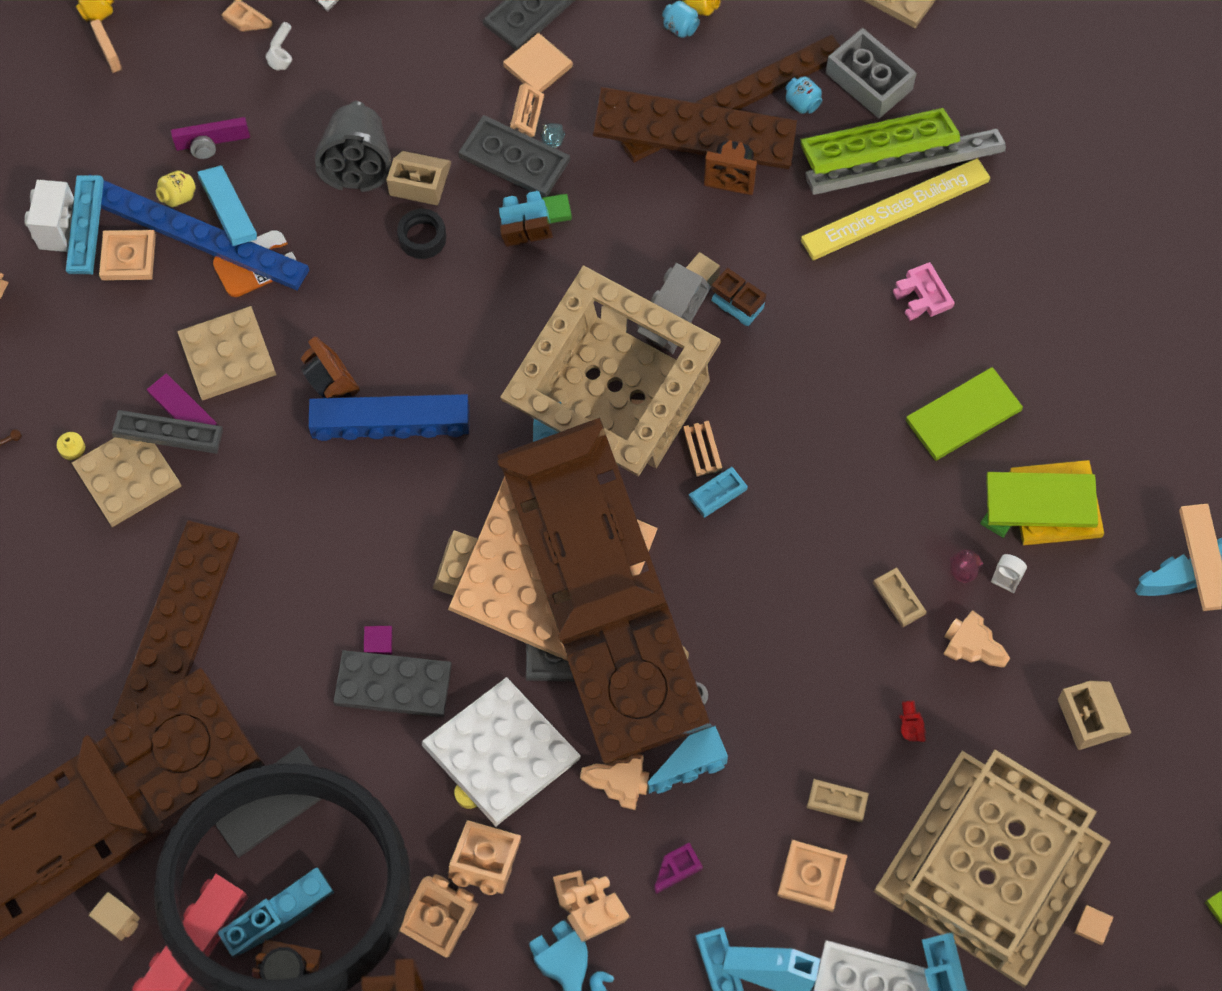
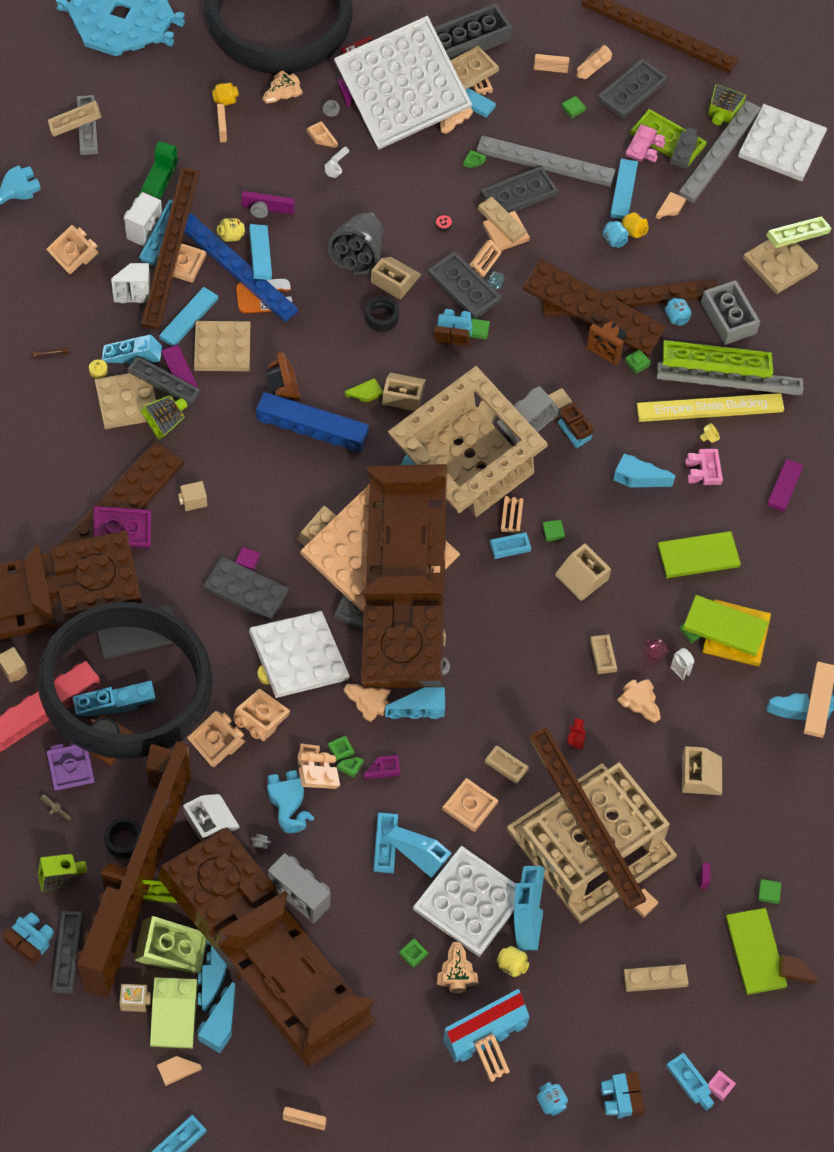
camera: 15 degrees right, 5 degrees down
(50, 140) = (161, 171): none -> green beam
(72, 311) = (132, 283): none -> white slope
(102, 406) = (127, 350): none -> medium azure slope
(105, 244) = (170, 249): none -> reddish brown plate
(164, 329) = (188, 316): none -> medium azure tile
(185, 653) = (135, 521): none -> magenta tile
(187, 480) = (163, 414): none -> torso
(270, 579) = (193, 496): none -> tan brick
(443, 347) = (365, 392): none -> lime tile
(452, 81) = (443, 223): none -> tile
(494, 330) = (403, 391): none -> tan slope
(527, 51) = (502, 220): none -> tan plate
(609, 862) = (341, 748): none -> bright green tile
(632, 882) = (350, 766): none -> bright green tile
(765, 450) = (553, 530): none -> bright green tile
(778, 180) = (637, 361): none -> bright green plate
(829, 495) = (583, 572): none -> tan slope
(843, 332) = (641, 474): none -> medium azure slope
(911, 244) = (710, 433): none -> light yellow tile
(989, 849) = (587, 819): none -> reddish brown plate
(1033, 279) = (785, 485): none -> magenta tile
(1157, 856) = (705, 875): none -> magenta tile

